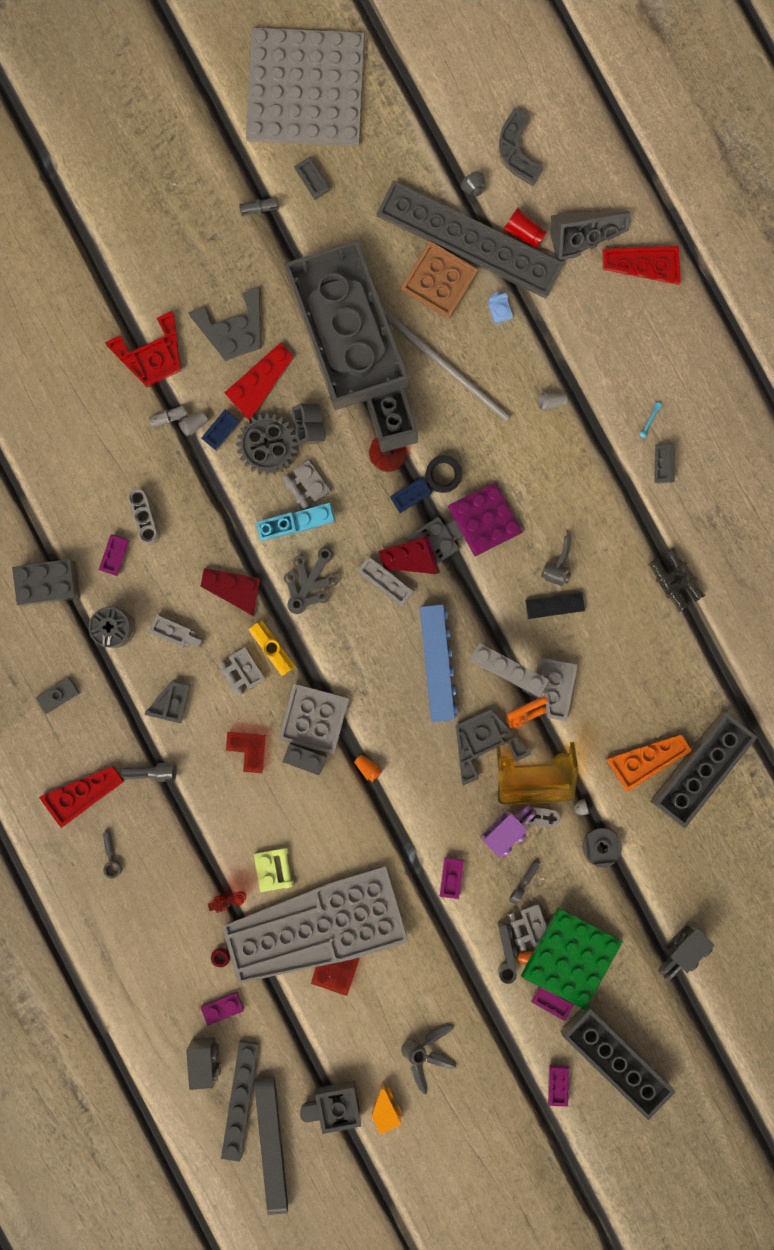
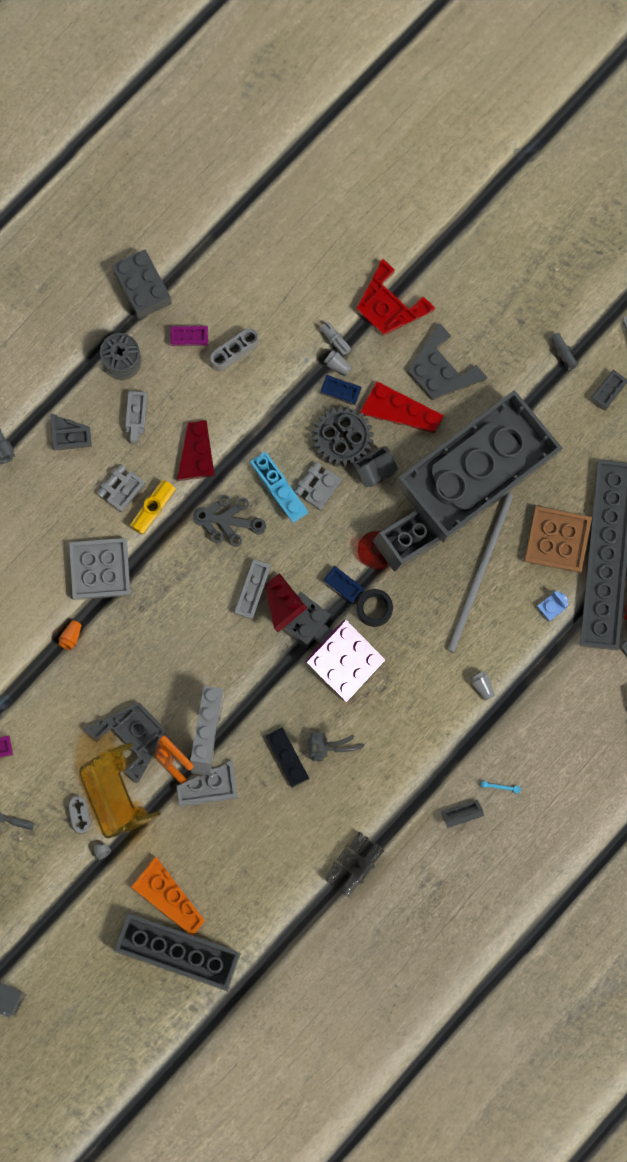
camera: 70 degrees right, 10 degrees down
(57, 695) = (41, 331): dark grey plate -> none
(252, 745) = (53, 523): clear red plate -> none
(304, 759) = (59, 573): dark grey brick -> none
(437, 663) = (192, 664): medium blue brick -> none
(507, 831) = (54, 783): medium lavender brick -> none
(594, 855) = (58, 881): dark grey plate -> none

